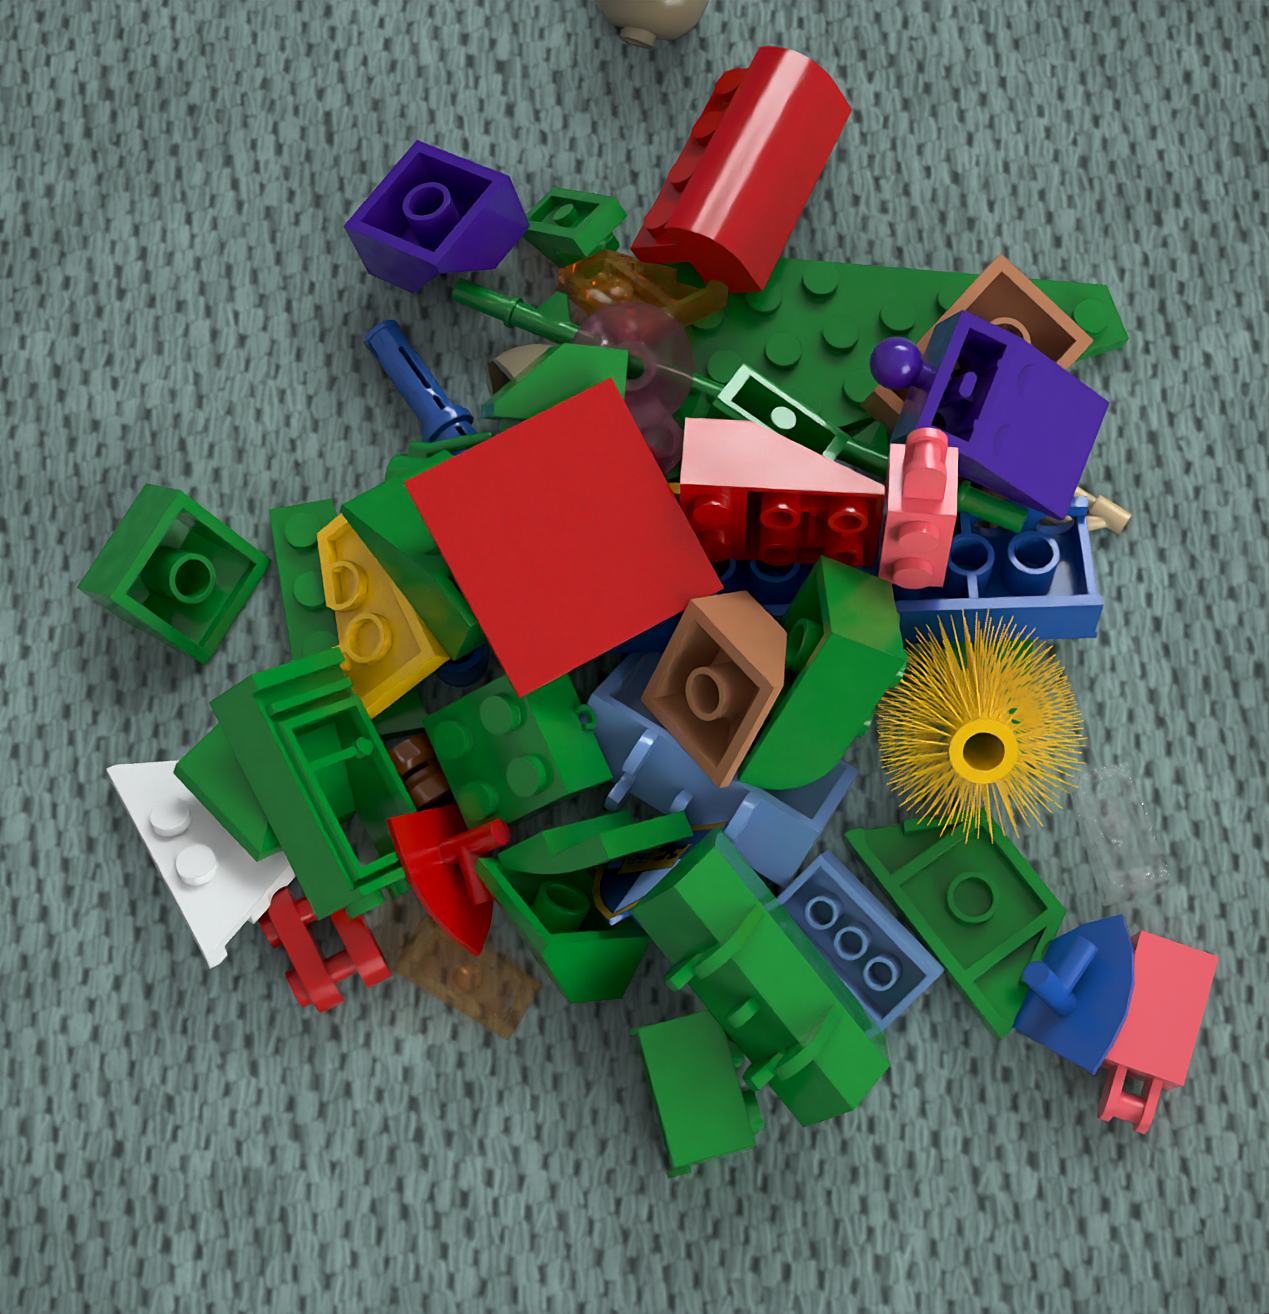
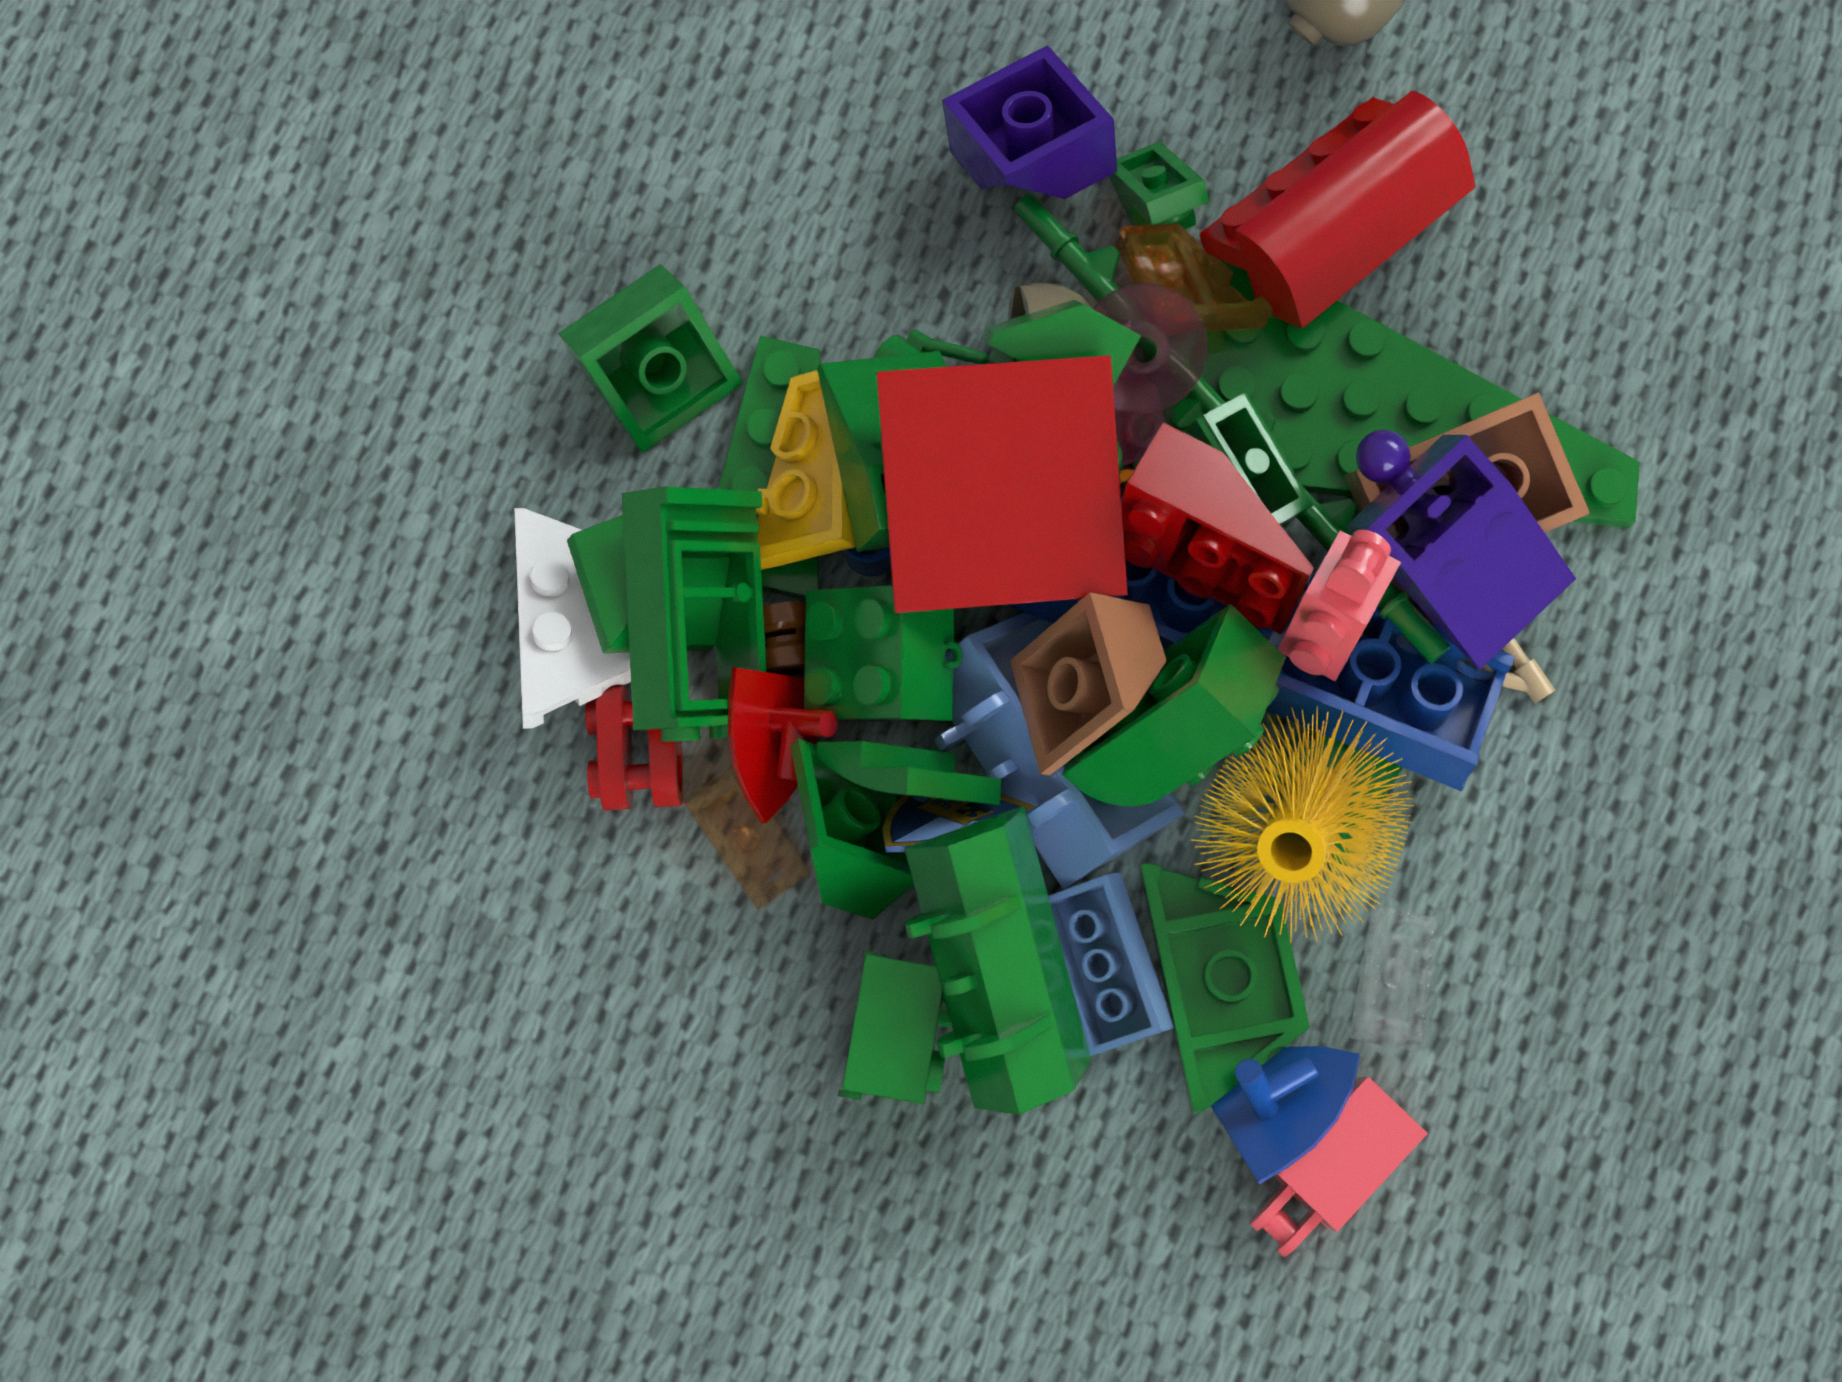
camera: 30 degrees right, 5 degrees up
(417, 385) = (946, 280): blue pin -> none

